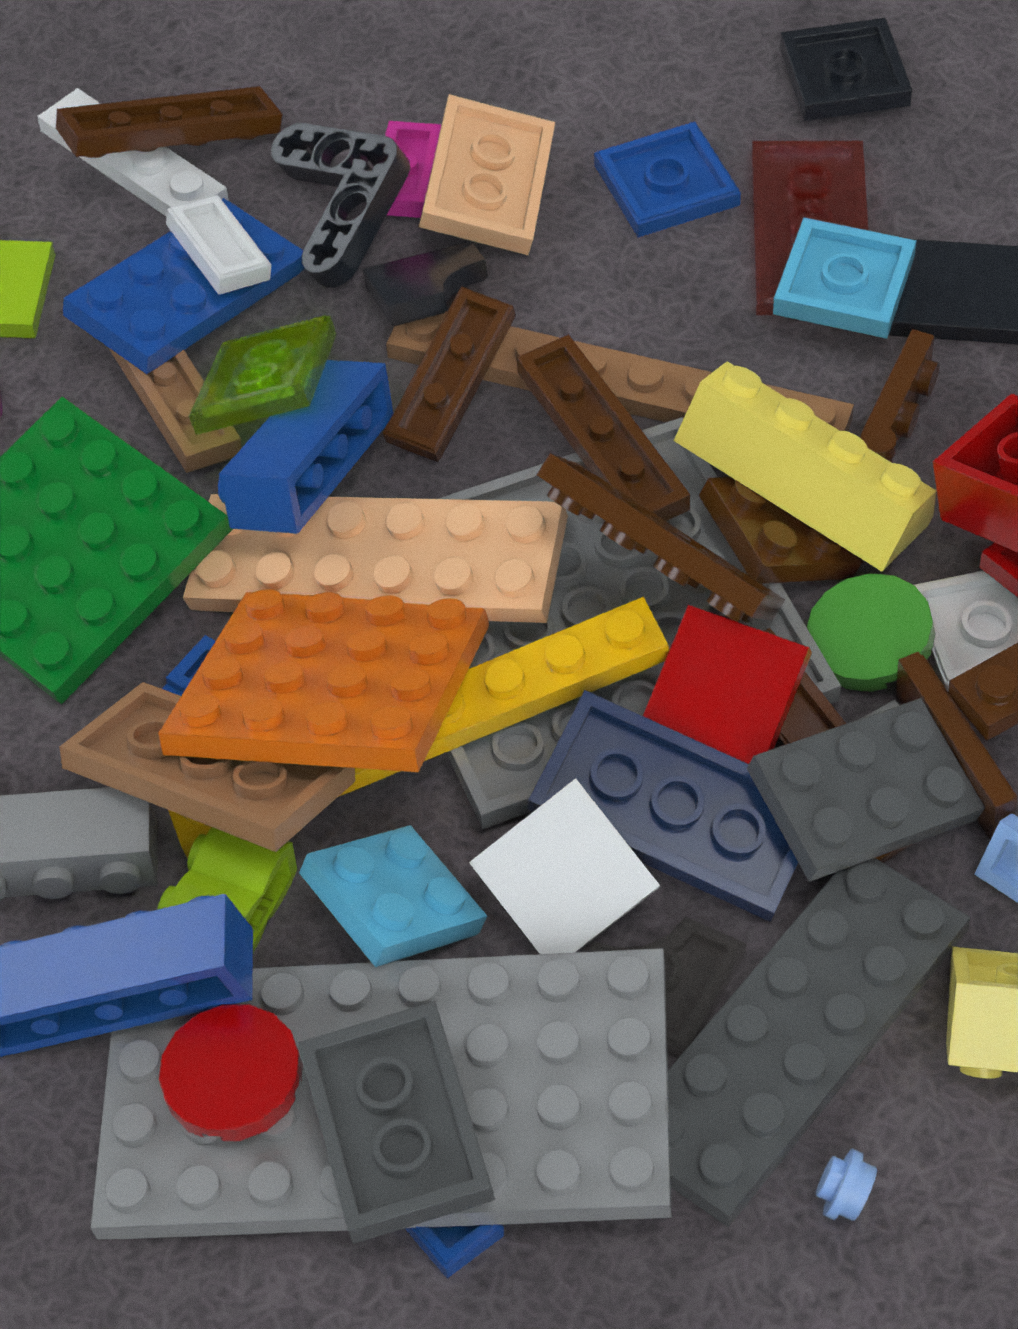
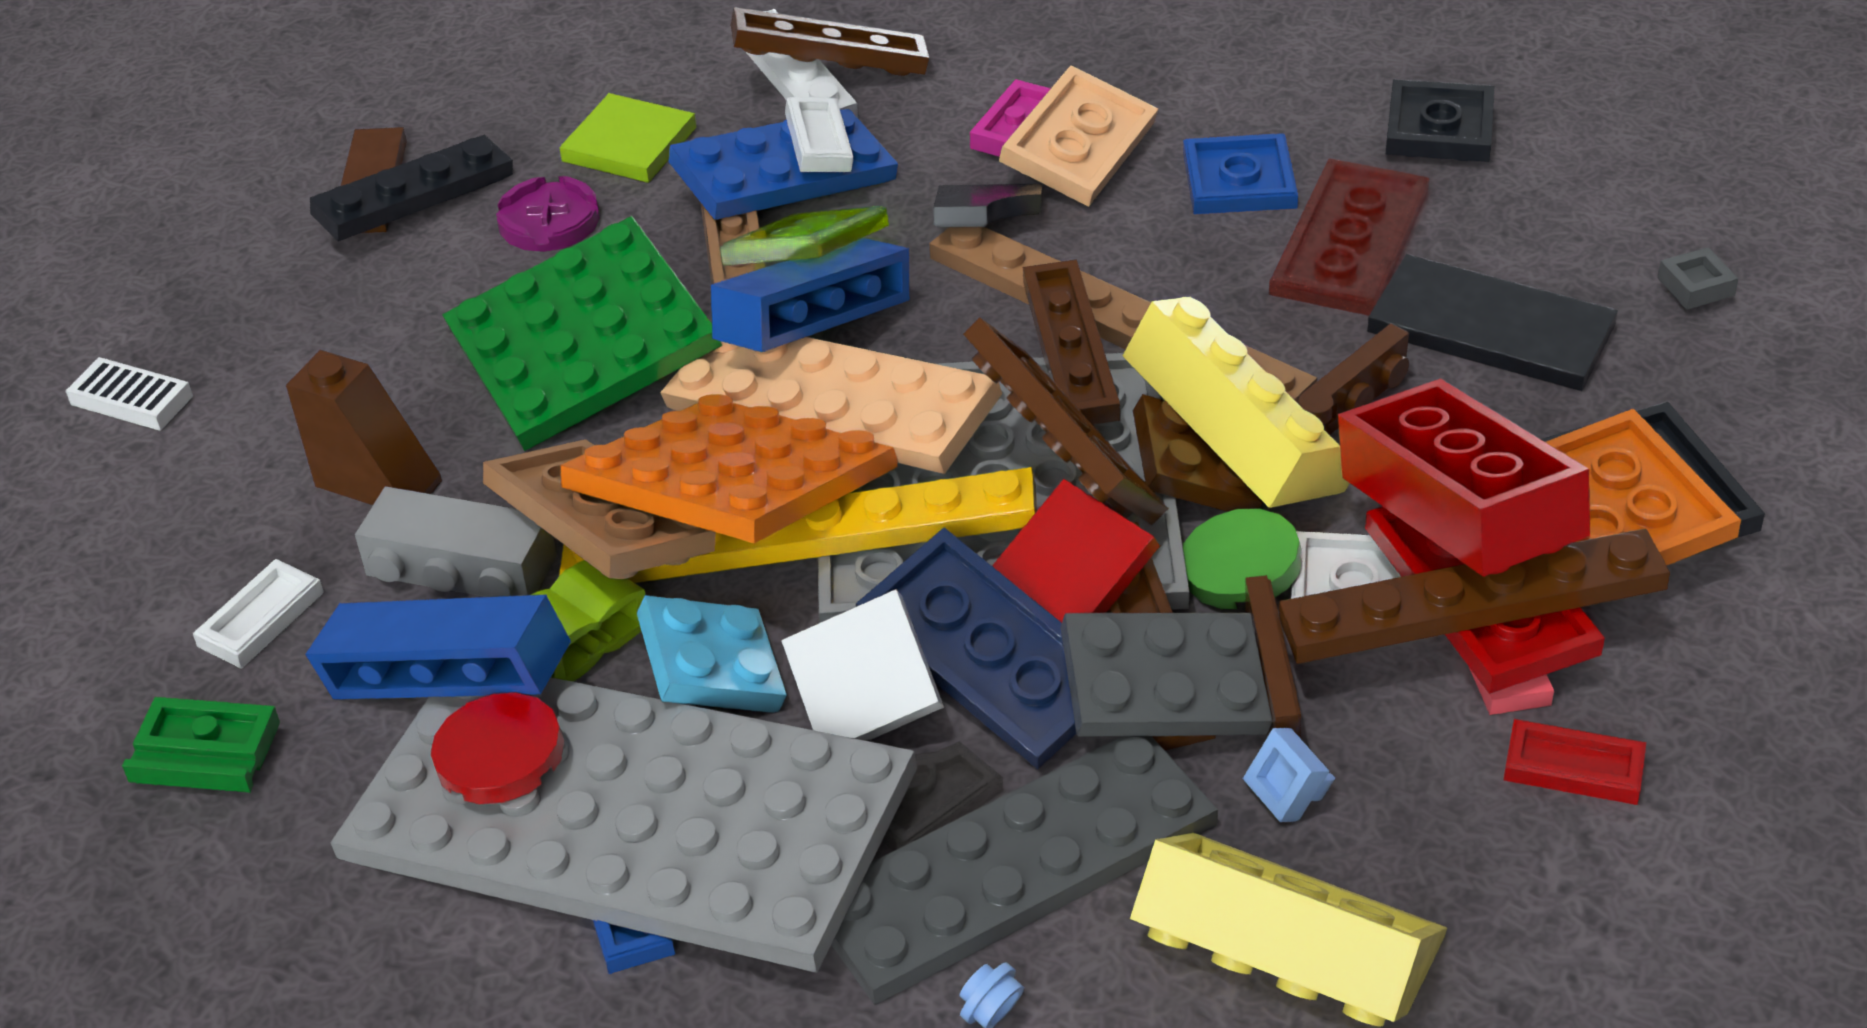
camera: 20 degrees right, 10 degrees down
(338, 244) = (966, 112): black beam -> none
(395, 1122) = (605, 818): dark grey plate -> none
(449, 374) = (968, 275): reddish brown tile -> none
(844, 277) = (1352, 273): medium azure plate -> none

